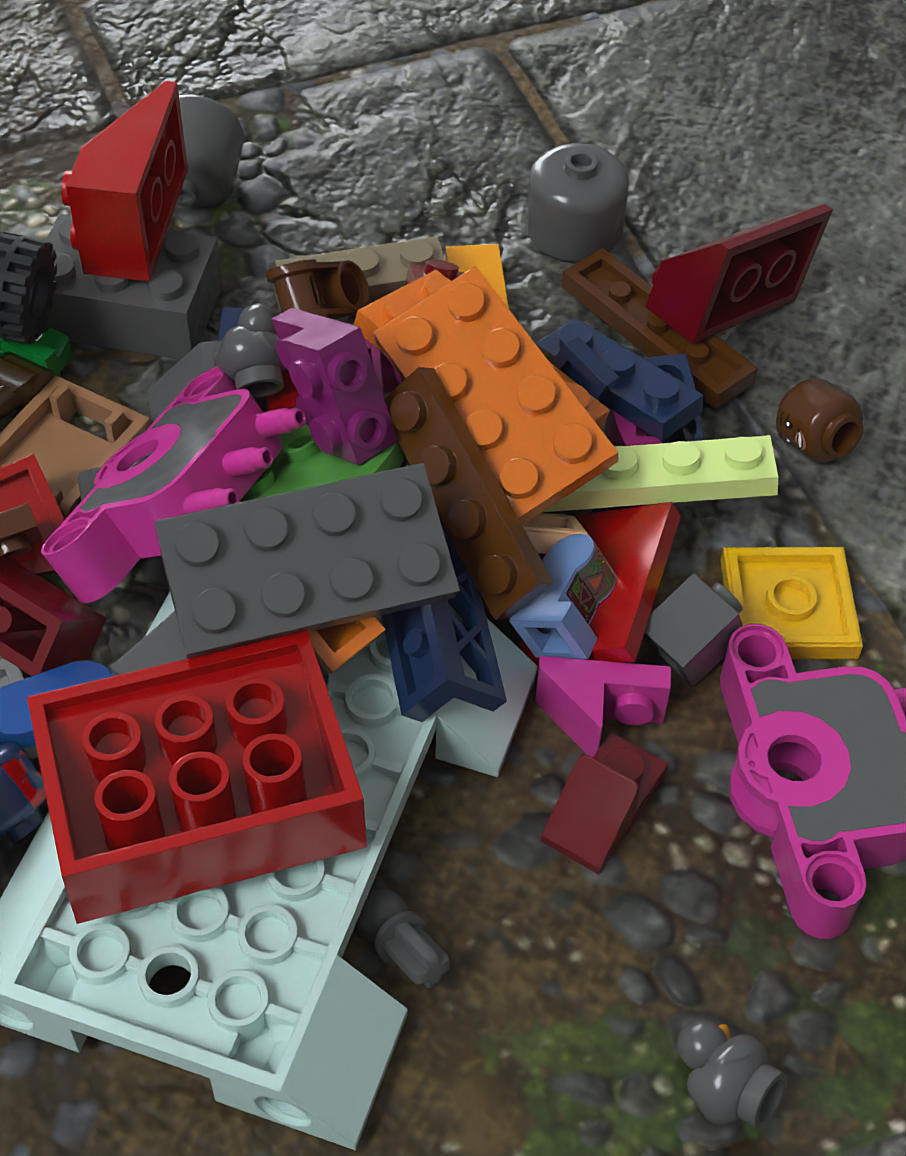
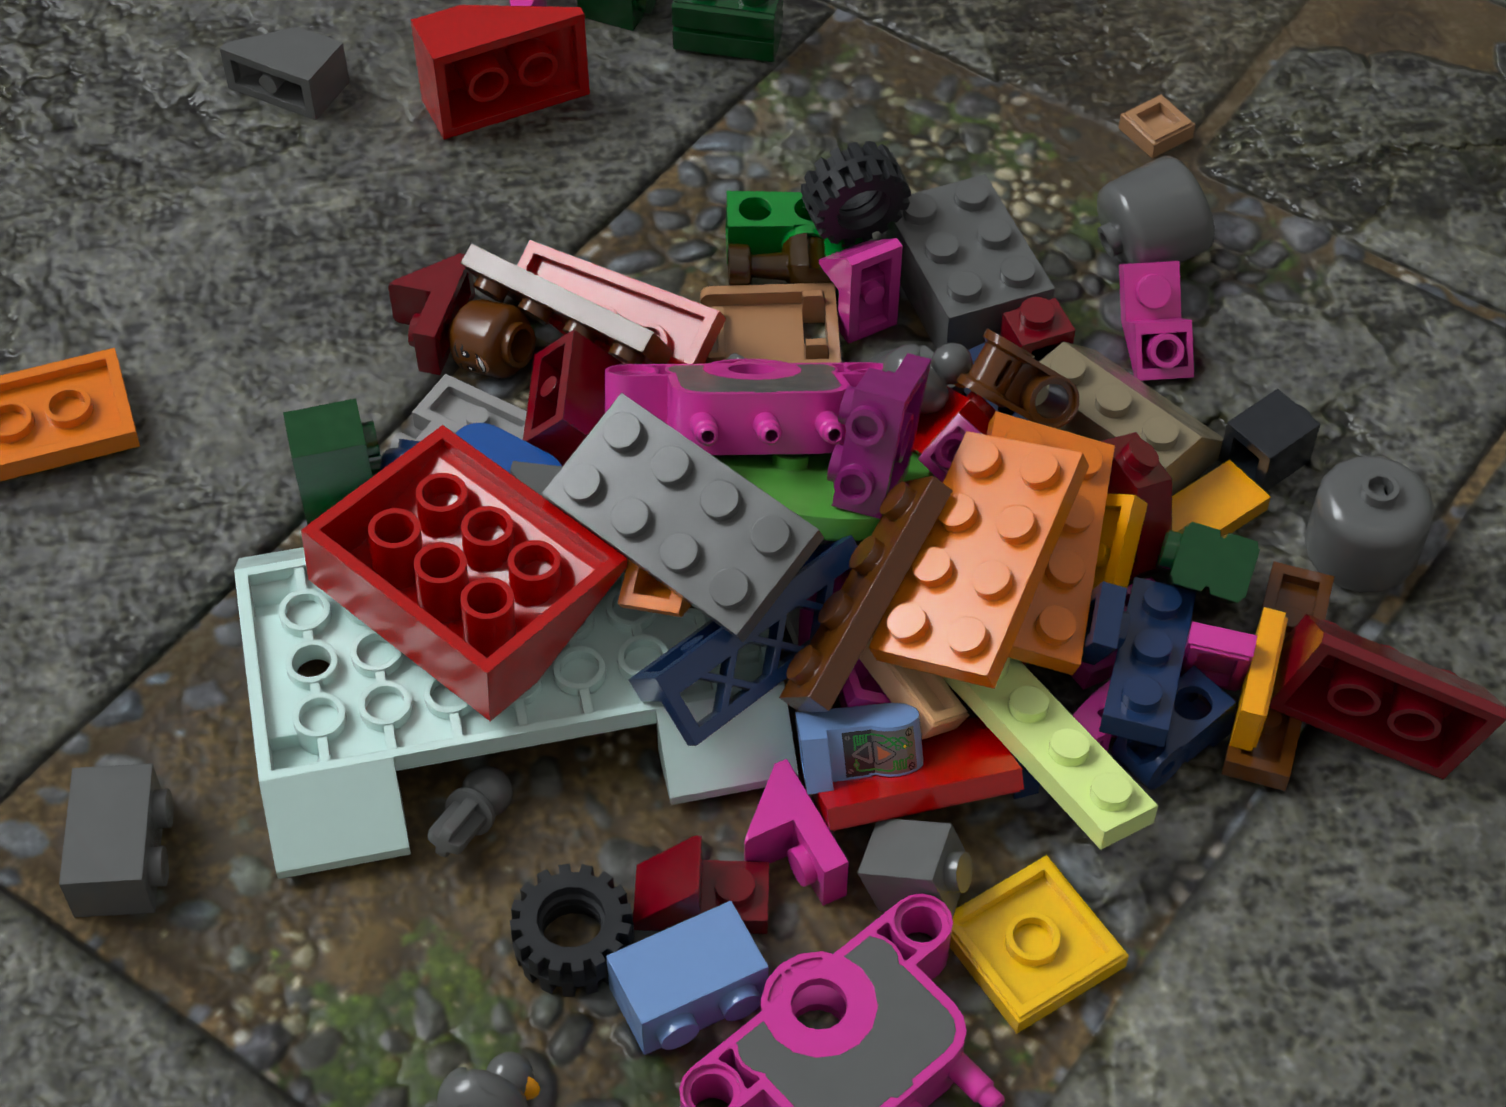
camera: 60 degrees right, 0 degrees up
(84, 111) = (1156, 126): none -> medium nougat tile
(88, 341) = (866, 285): none -> dark pink slope
(128, 188) = (1016, 190): red slope -> none
(239, 279) = (1038, 325): none -> dark red brick
(293, 225) = (1152, 321): none -> dark pink slope
(452, 209) = (1270, 439): none -> black brick
(562, 291) = (1208, 562): none -> dark green brick
(593, 879) = (563, 895): none -> black tyre
(651, 326) = (1219, 654): none -> dark pink tile
(678, 327) = (1259, 680): none -> light orange tile
(695, 850) = (688, 978): none -> medium blue brick
(820, 420) = (1267, 861): reddish brown head -> none

